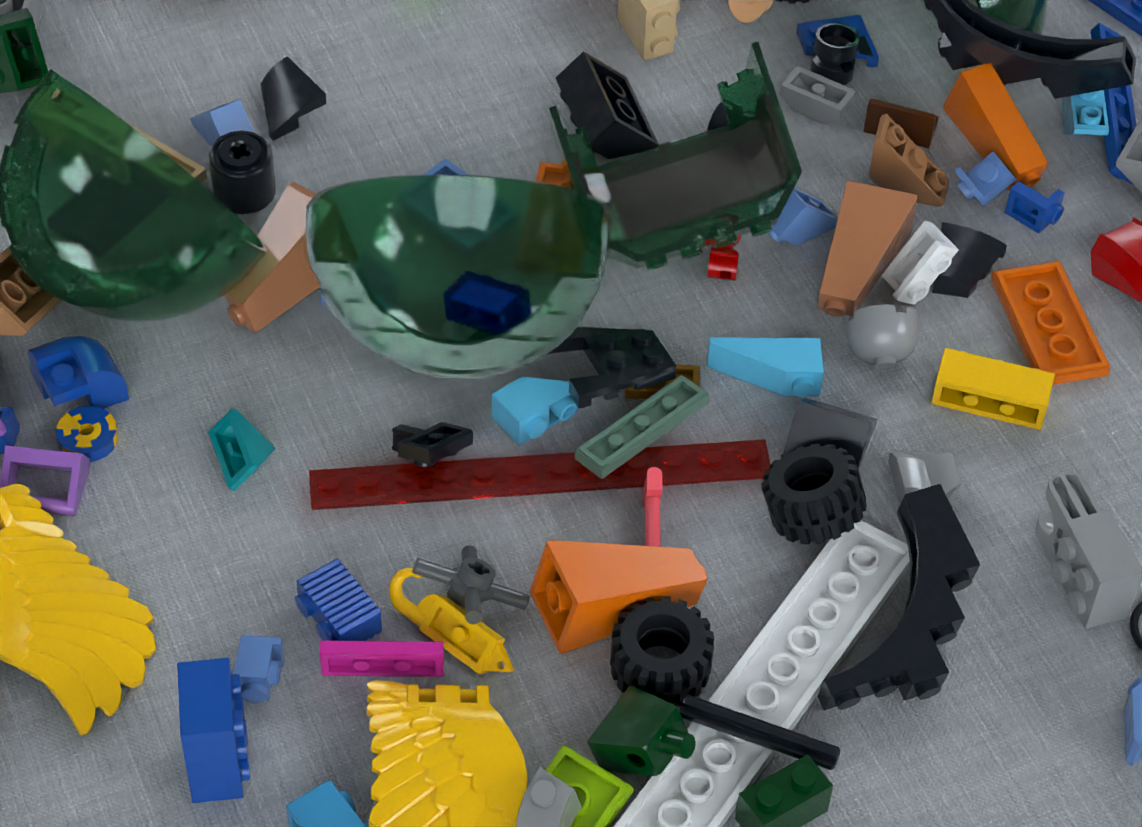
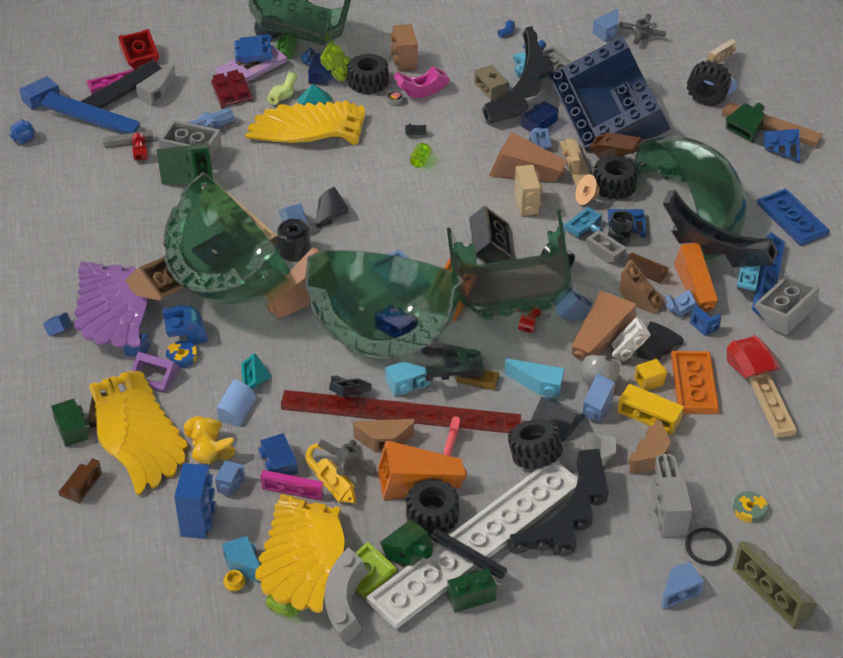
camera: 15 degrees right, 5 degrees down
(185, 587) = (205, 433): none -> yellow animal
(225, 515) = (236, 403): none -> light blue brick
(522, 525) = (375, 433): none -> medium nougat slope
(641, 426) = (457, 396): sand green tile -> none
(773, 47) = (584, 222): none -> dark azure plate
(900, 385) = (599, 398): none -> medium blue slope
(972, 323) = (650, 375): none -> yellow brick
(1020, 465) = (648, 449): none -> medium nougat slope

